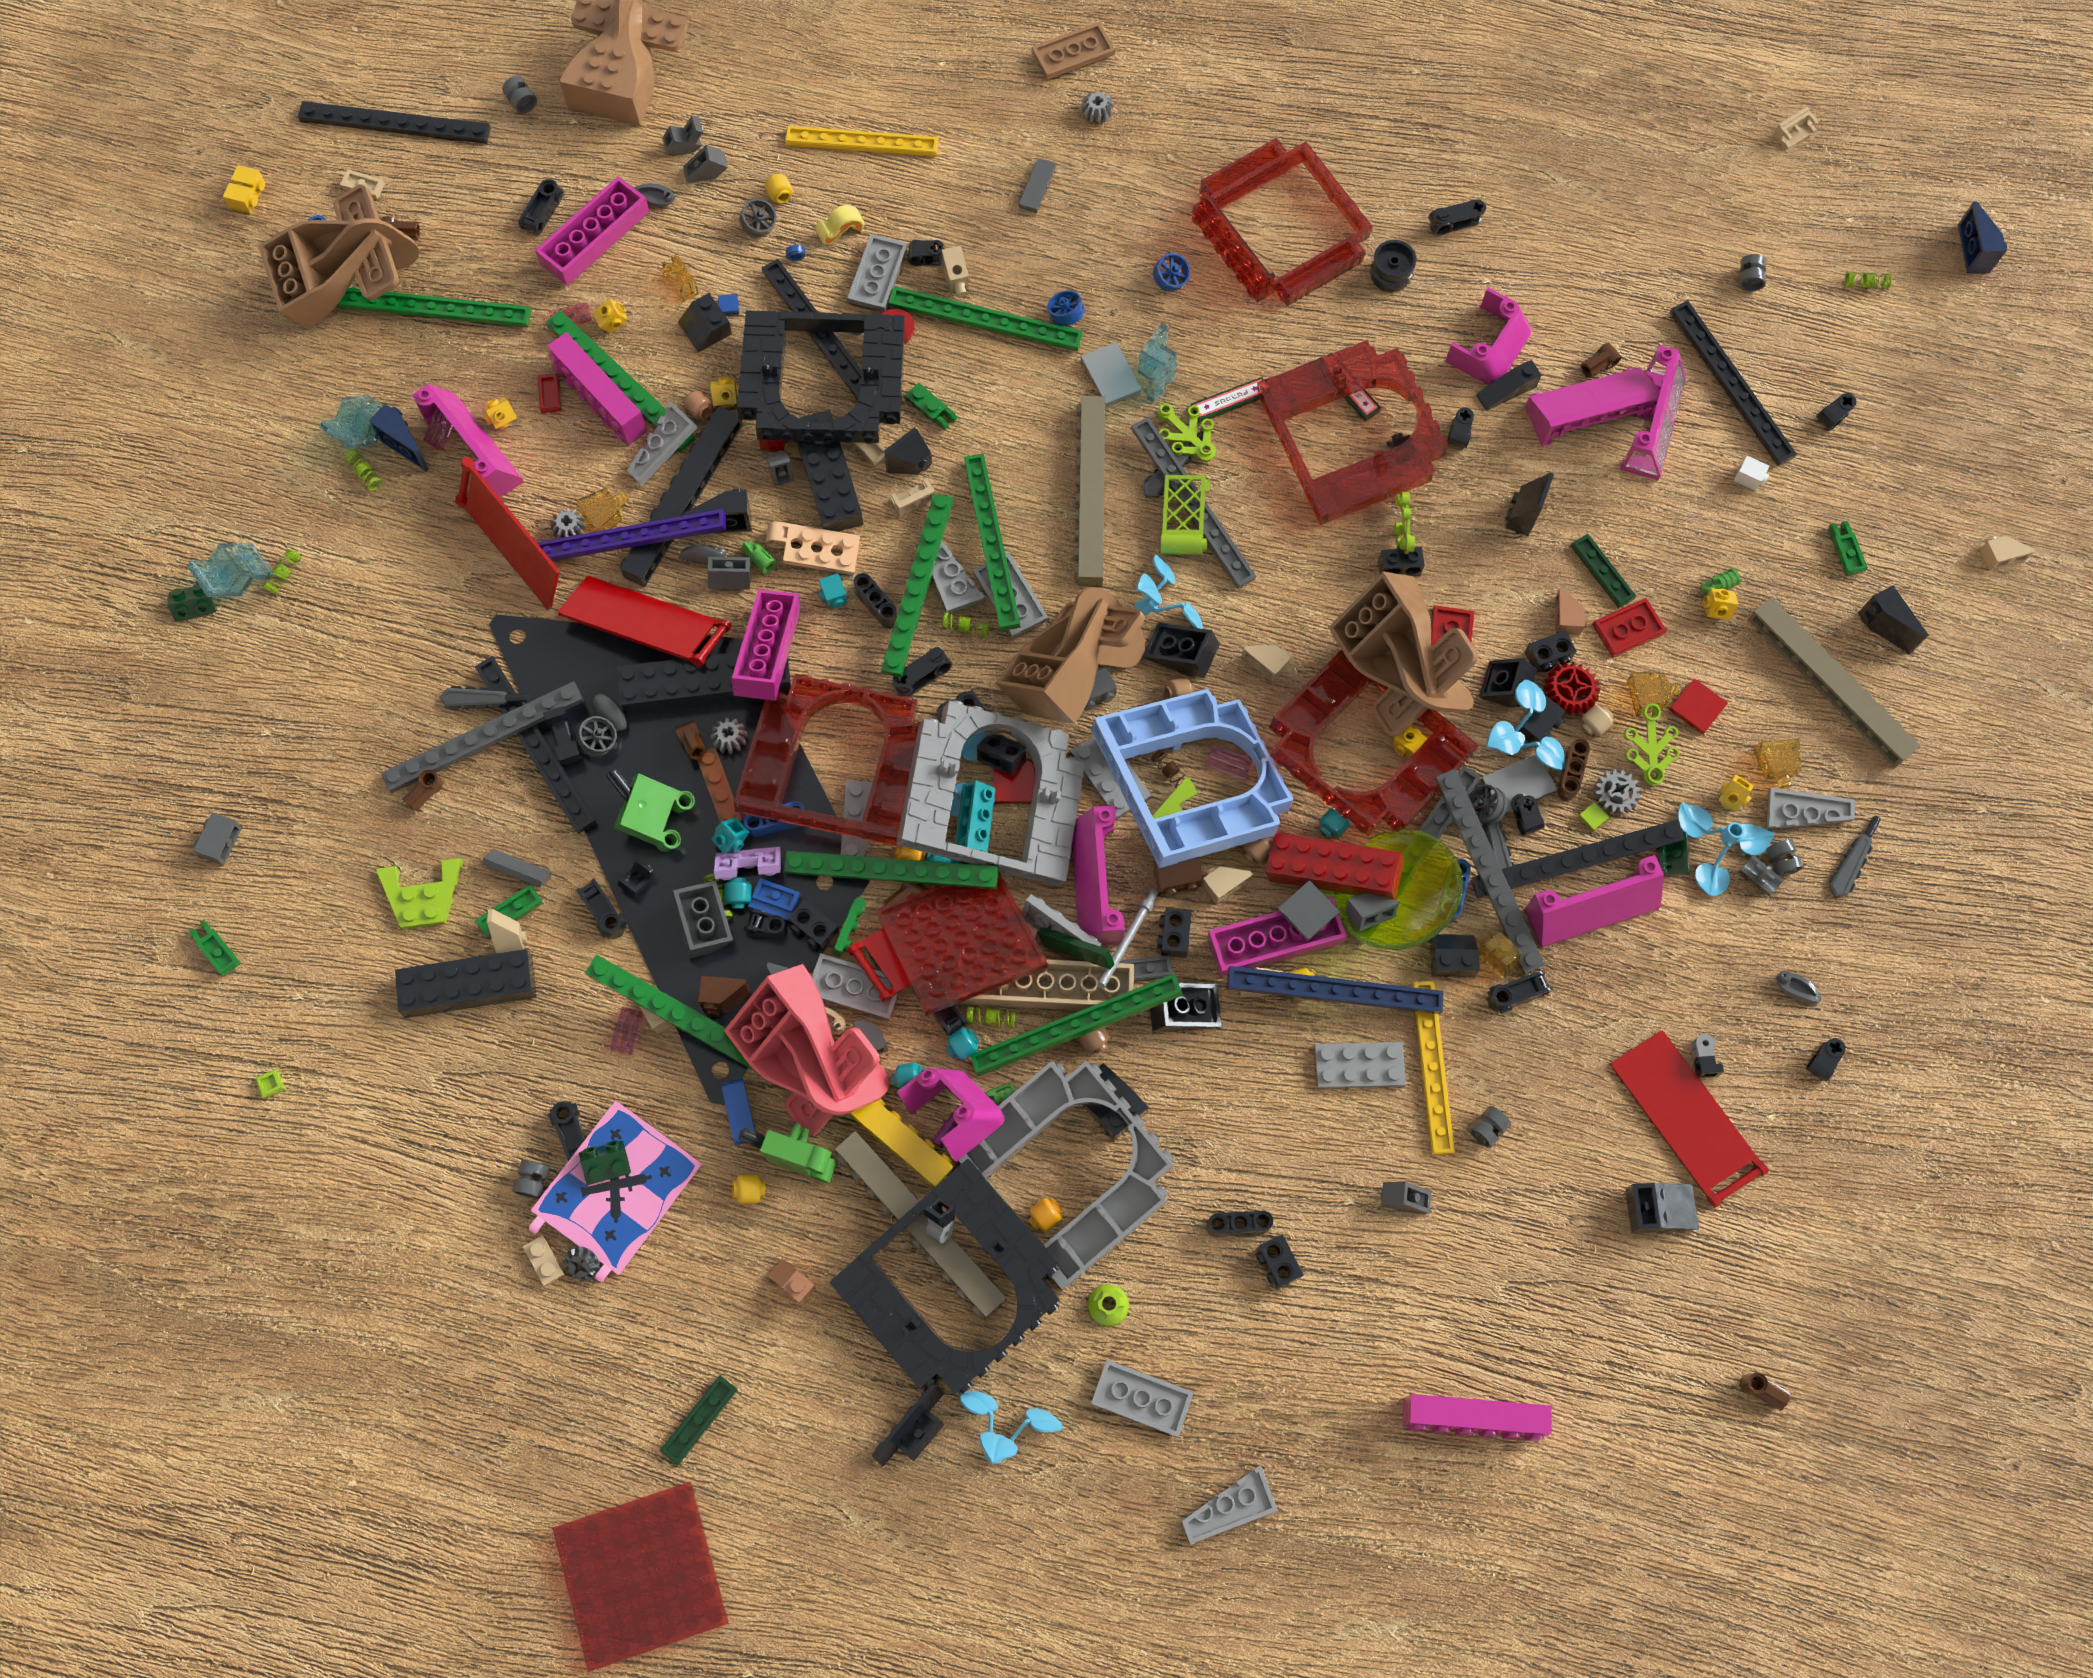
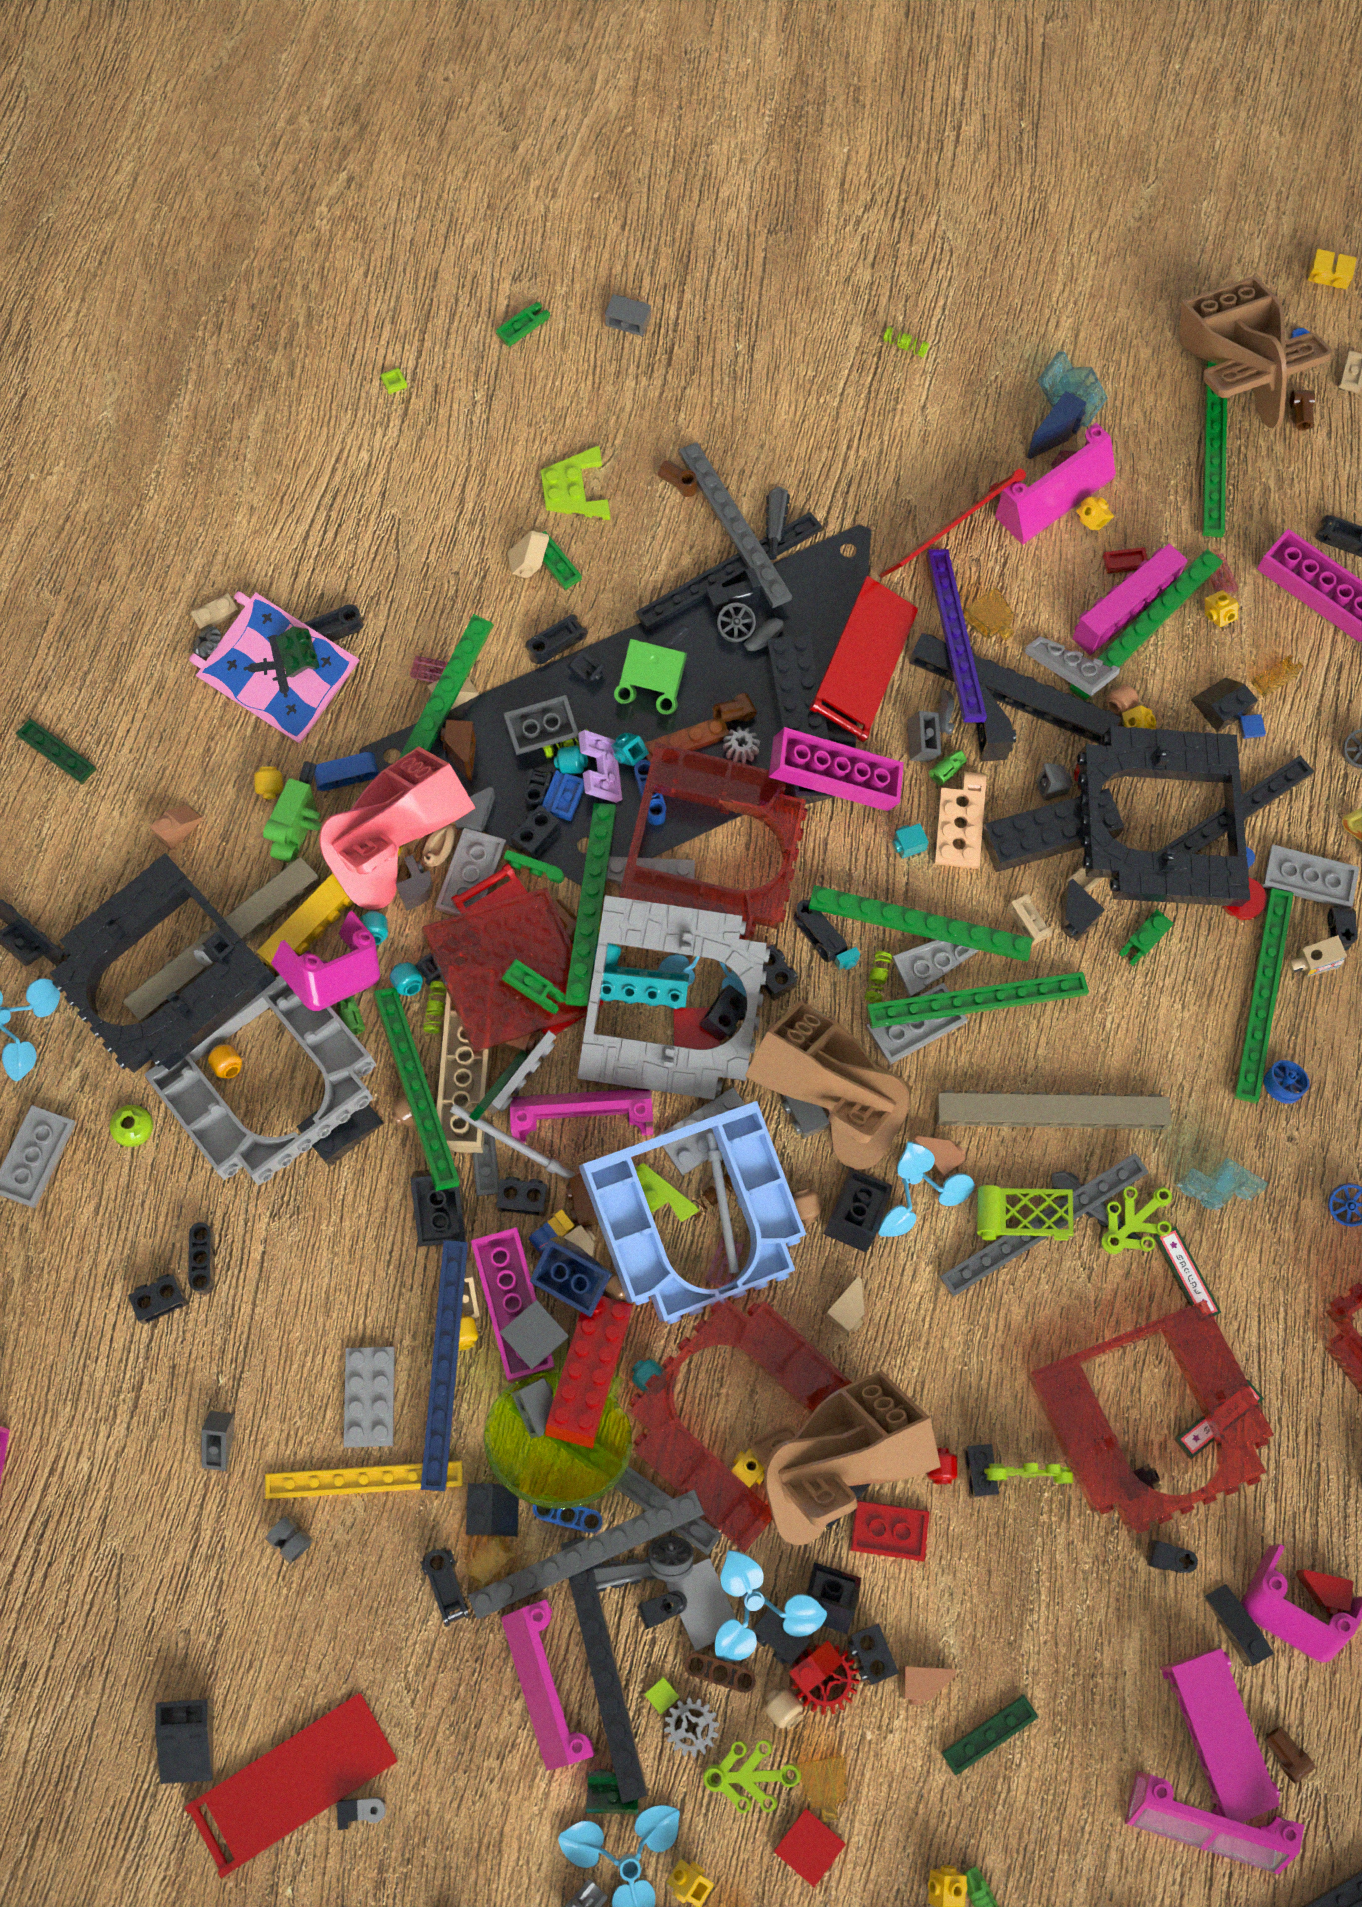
camera: 90 degrees right, 0 degrees up
(189, 603) = (870, 271): dark green bracket -> none
(229, 569) = (901, 295): clear light blue bracket -> none
(363, 469) = (1021, 399): lime piece -> none
(465, 983) = (482, 528): black brick -> none
(516, 868) = (598, 563): dark grey tile -> none
(530, 1187) = (288, 594): dark grey wheel -> none
(573, 519) = (972, 584): light grey gear -> none
(795, 253) = (1324, 790): blue tile -> none
(871, 592) = (907, 875): black beam -> none
(949, 648) = (847, 959): none -> teal plate
(980, 915) = (533, 985): none -> green hinge
(1111, 374) = (1207, 1135): light grey tile -> none
(1129, 579) = (946, 1154): none -> nougat slope
(1139, 762) = (715, 1158): none -> light grey bar
(1207, 906) = (558, 1225): none -> leg
(1254, 878) = (571, 1275): none -> dark blue slope
(1479, 321) = (1327, 1590): none -> red slope
(1528, 504) = (1066, 1635): black slope -> none
(1569, 690) = (815, 1667): none -> red slope
(1629, 627) = (913, 1764): red tile -> none

